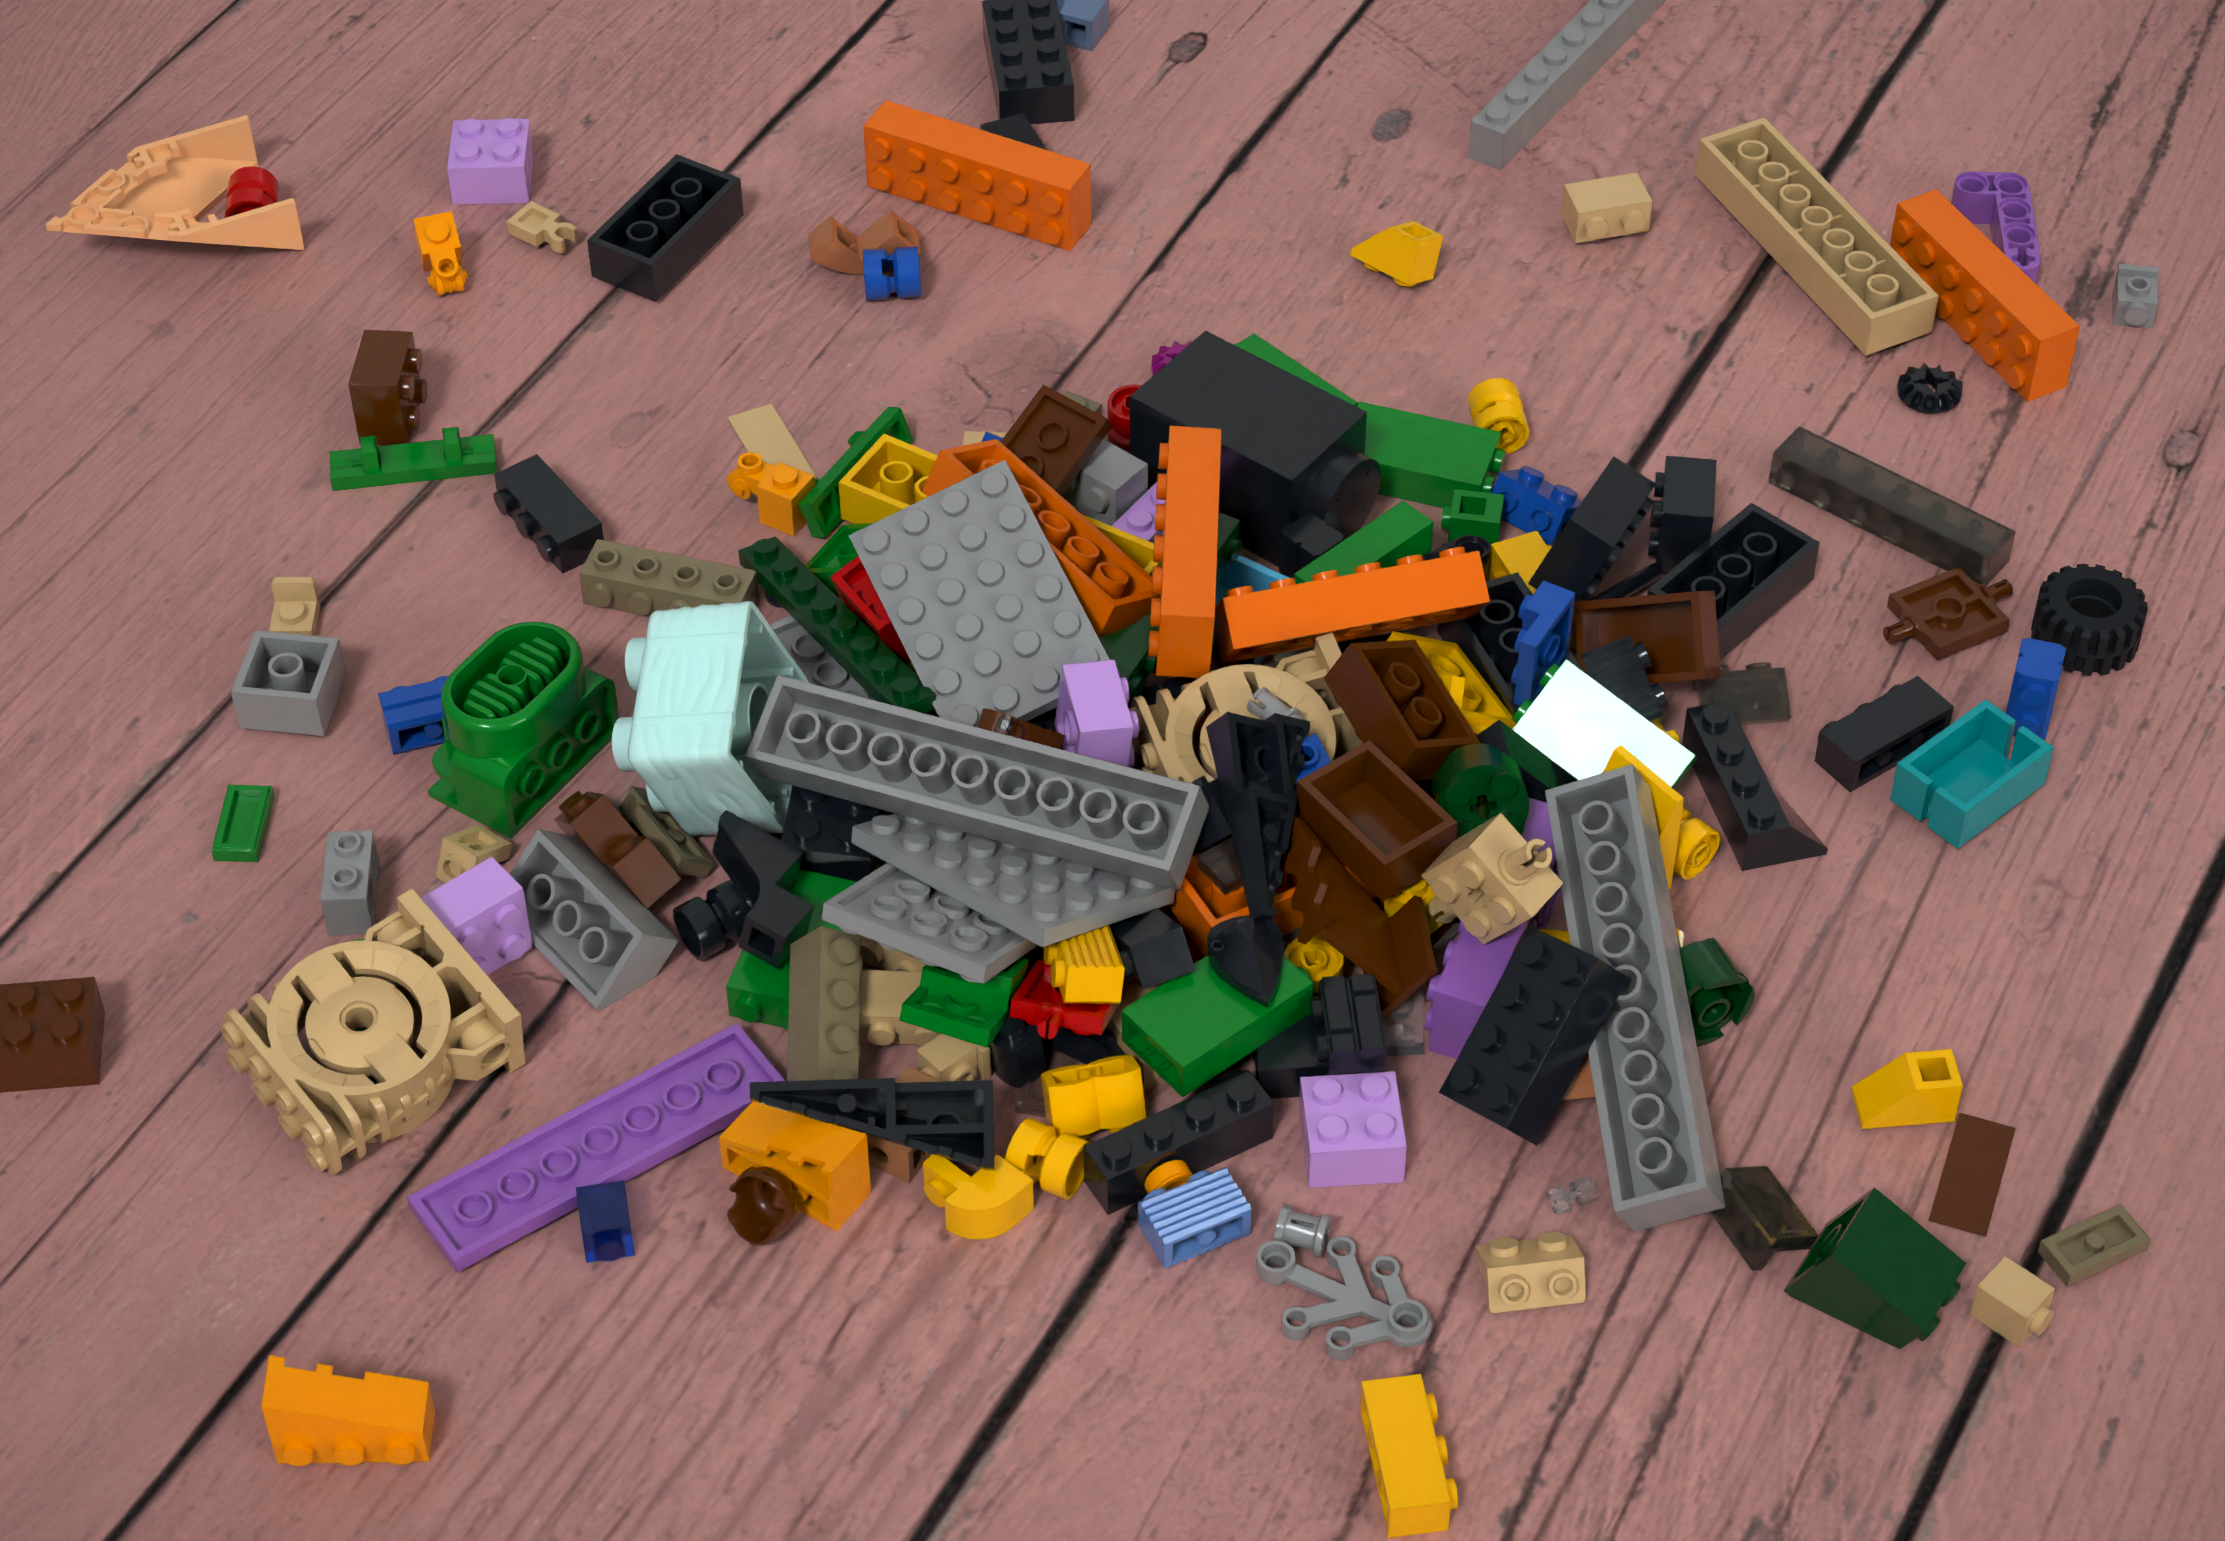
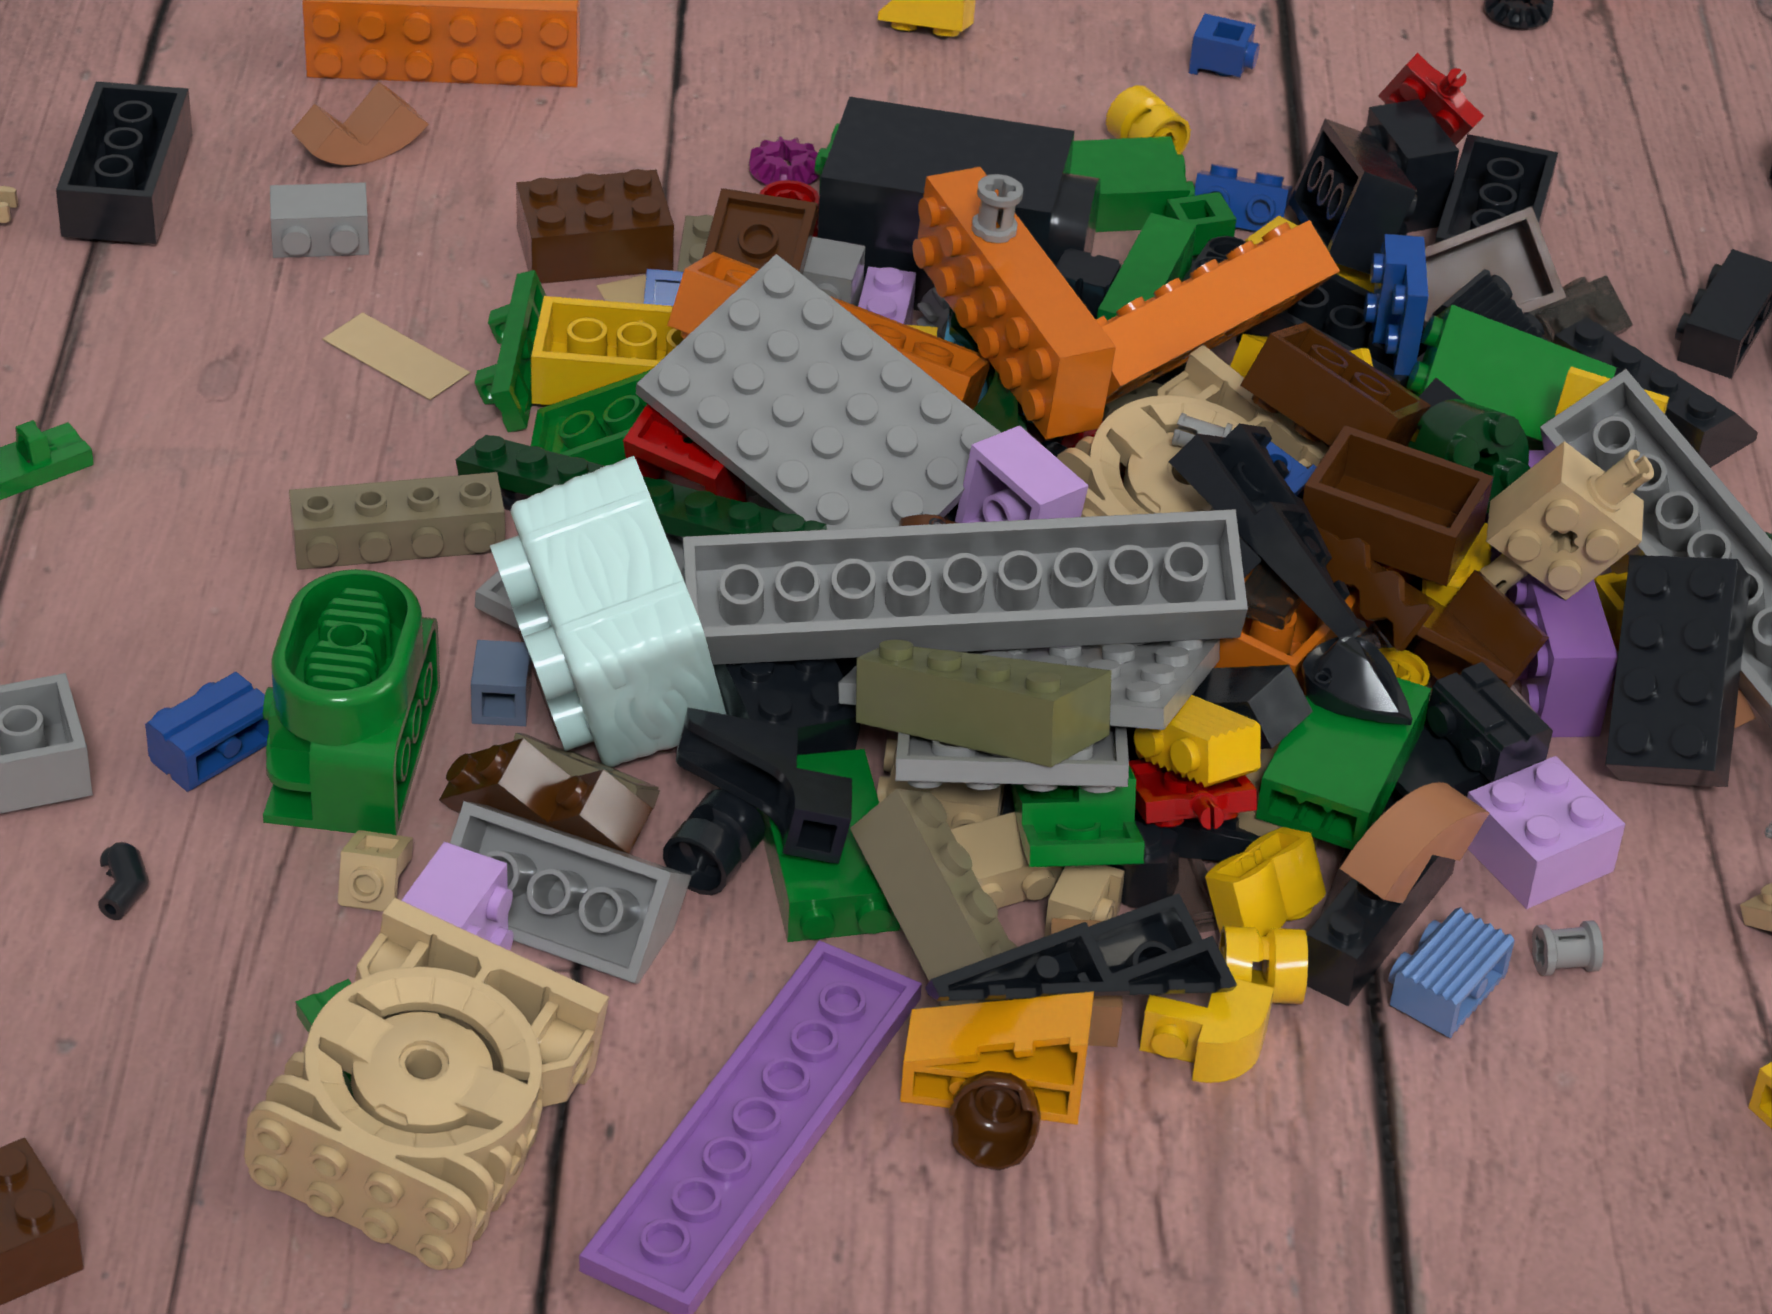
camera: 30 degrees left, 5 degrees down
(243, 823) = (60, 919): green tile -> none
(305, 808) = (129, 877): none -> black arm
(350, 882) = (254, 938): light grey brick -> none
(547, 512) = (200, 484): black brick -> none
(605, 1221) = (828, 1200): clear blue brick -> none
(777, 490) = (455, 385): light orange brick -> none
(782, 316) = (319, 220): none -> light grey brick
(905, 268) = (413, 147): blue wheel -> none
(924, 882) = (984, 701): none -> olive wedge
(980, 378) = (595, 226): none -> reddish brown brick
(1168, 1176) = (1401, 938): light orange tile -> none
(1192, 471) = (997, 208): none -> light grey bush
(1213, 1091) = (1406, 836): none -> nougat brick
(1345, 1300) = (1723, 1002): light grey plant -> none
(1622, 358) = (1223, 46): none -> blue brick
(1735, 460) = (1438, 93): none -> red plate
(1891, 506) = (1587, 114): clear smoke brick -> none
(1948, 612) = (1698, 192): reddish brown plate -> none

